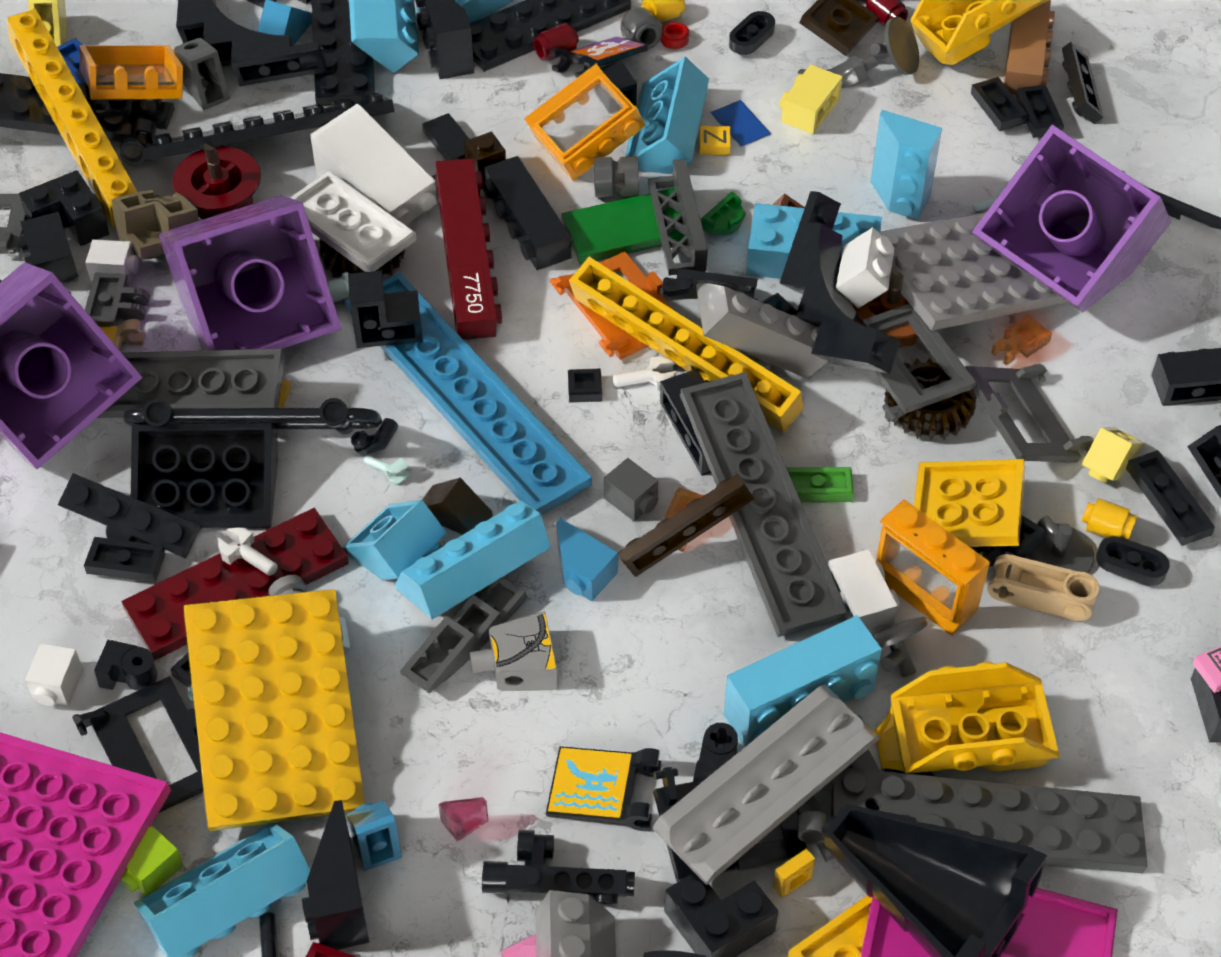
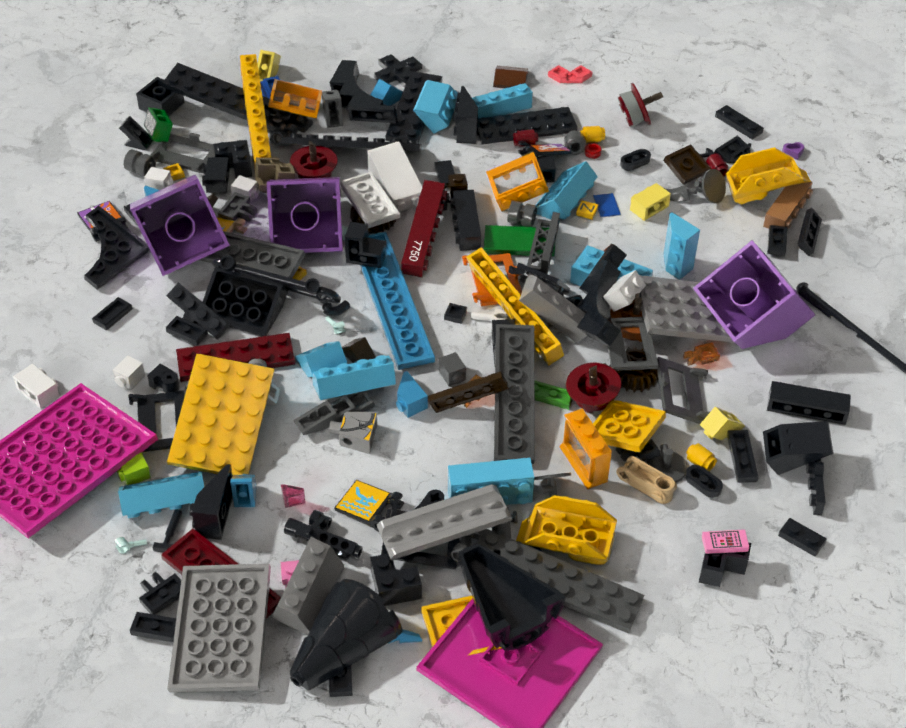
camera: 20 degrees right, 5 degrees down
(230, 553) = (236, 341): white bar -> none
(725, 216) = (571, 250): green tile -> none
(794, 873) = (442, 573): yellow tile -> none
(865, 590) = (547, 453): white brick -> none
(885, 449) = (593, 386): none -> dark red piece
(999, 104) = (756, 230): black plate -> none

